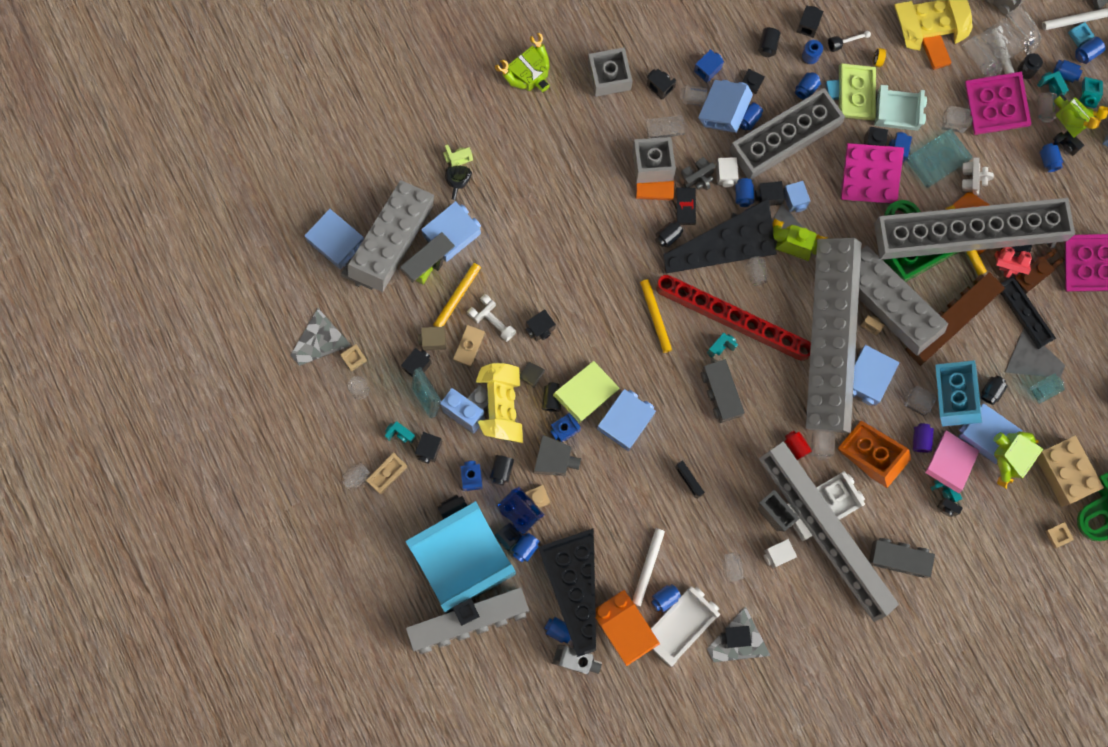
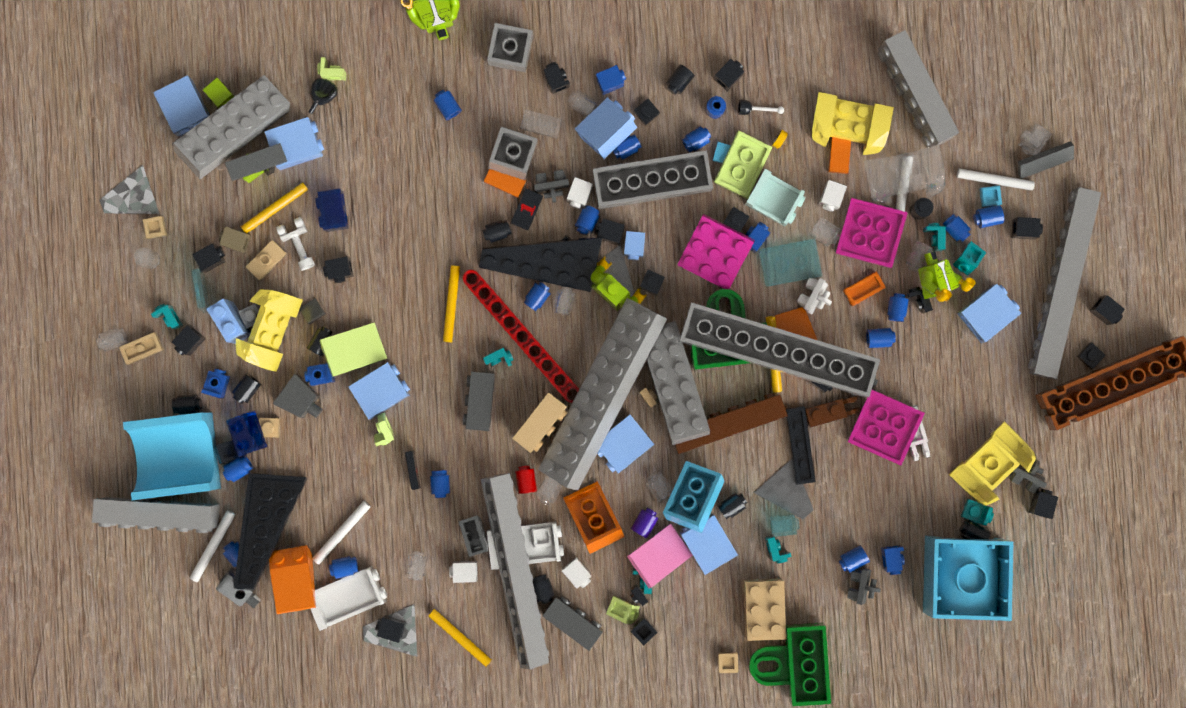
camera: 25 degrees right, 10 degrees up
(363, 214) = (218, 92): none -> lime brick
(466, 612) = (150, 508): black plate -> none
(512, 274) = (332, 210): none -> clear blue brick
(532, 632) = (212, 546): none -> white piece
(574, 143) = (447, 104): none -> blue brick
(648, 453) = (385, 431): none -> yellowish green bracket
(720, 482) = (440, 483): none -> blue brick
(731, 276) = (537, 296): none -> blue brick
(789, 385) = (540, 423): none -> tan brick
(803, 619) = (460, 637): none -> yellow piece
(828, 222) = (652, 282): none -> black brick
(861, 538) = (543, 589): none -> black brick
(884, 511) = (577, 573): none -> white brick
(941, 528) = (623, 610): none -> yellowish green bracket
(948, 86) = (832, 195): none -> white brick
(970, 536) = (643, 630): none -> black brick
(1012, 264) = (807, 394): coral hips -> none
(1013, 154) = (864, 288): none -> orange tile
(1015, 455) = (719, 574): lime torso -> none
(1049, 189) = (880, 337): none -> blue brick
(1050, 415) = (774, 548): none -> teal bracket

